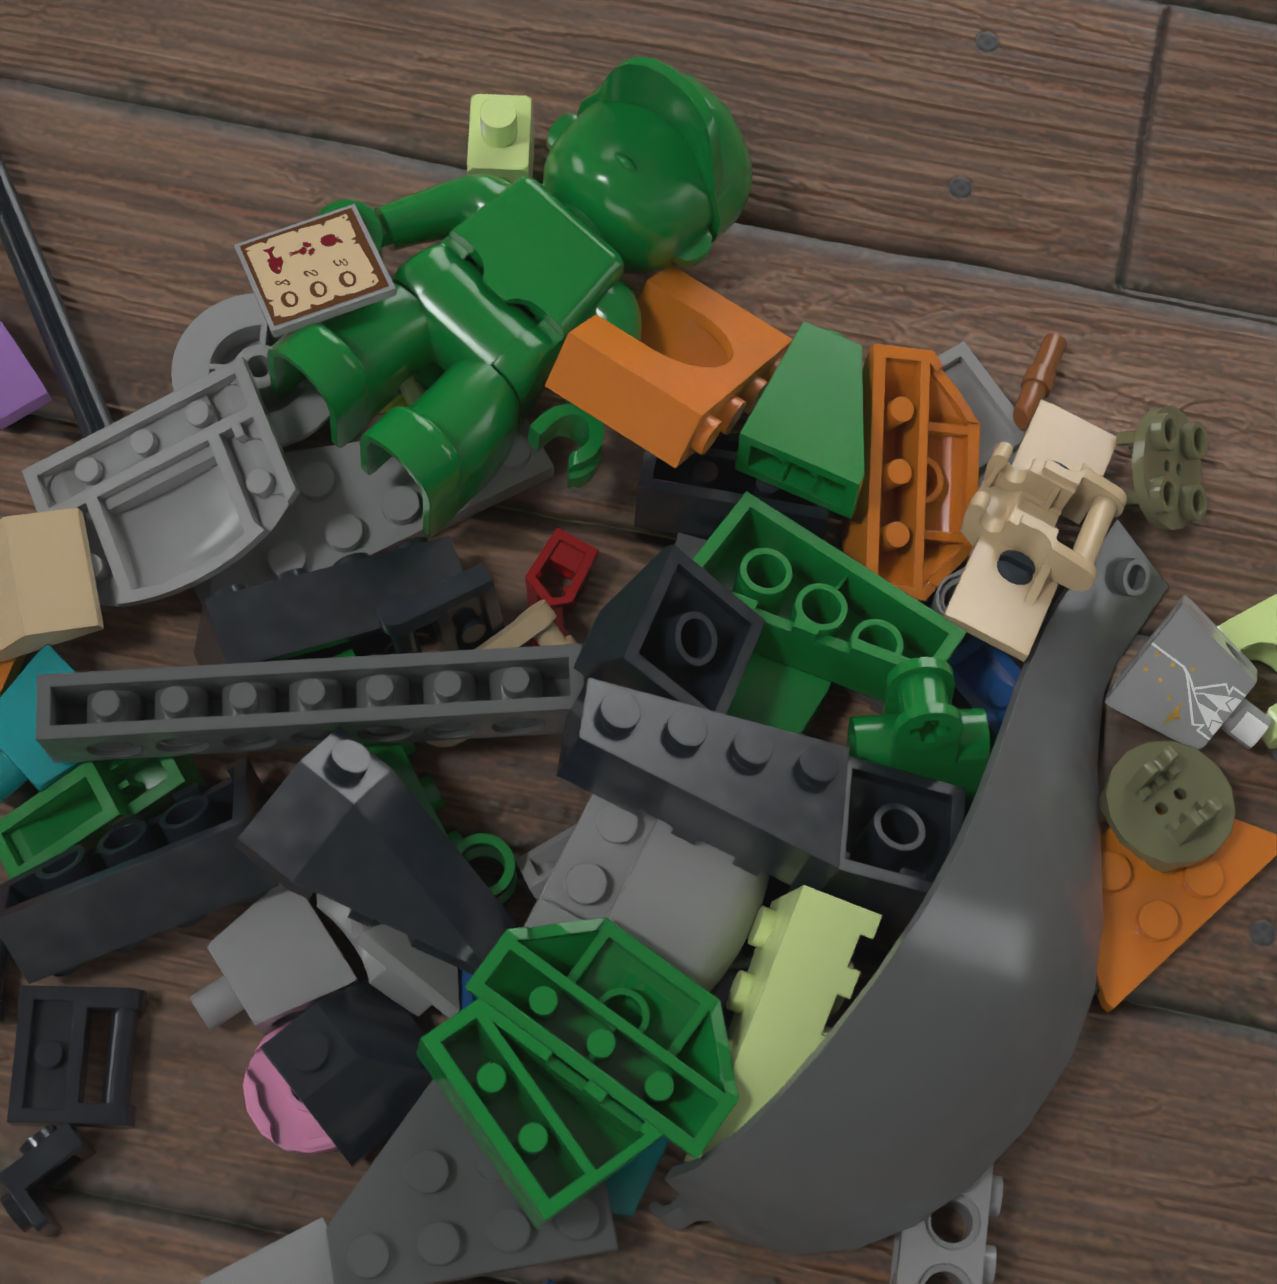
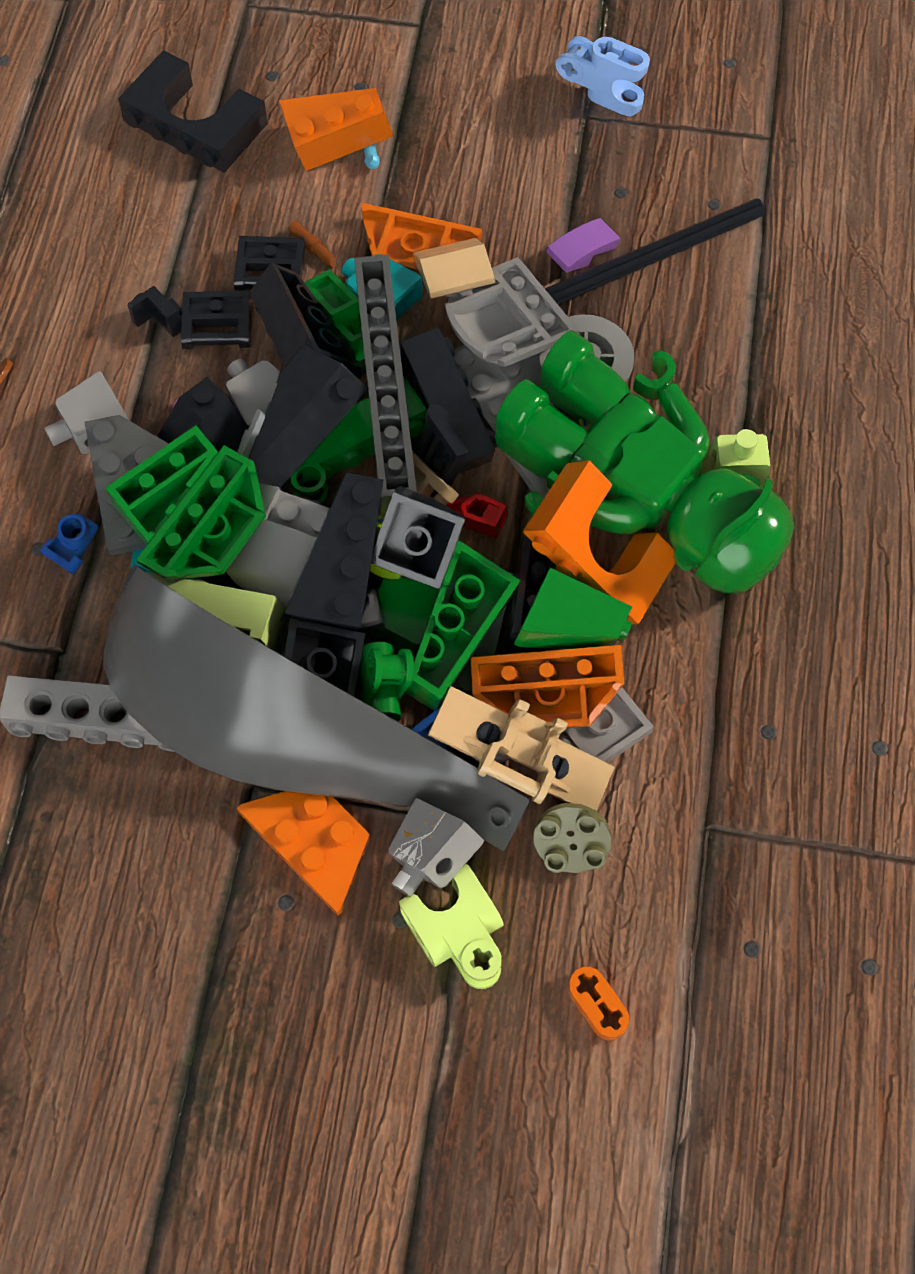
camera: 90 degrees right, 5 degrees down
(314, 270) = (623, 347): piece -> none
(1039, 379) = (634, 772): dark orange piece -> none
(1190, 827) = (339, 845): olive plate -> none

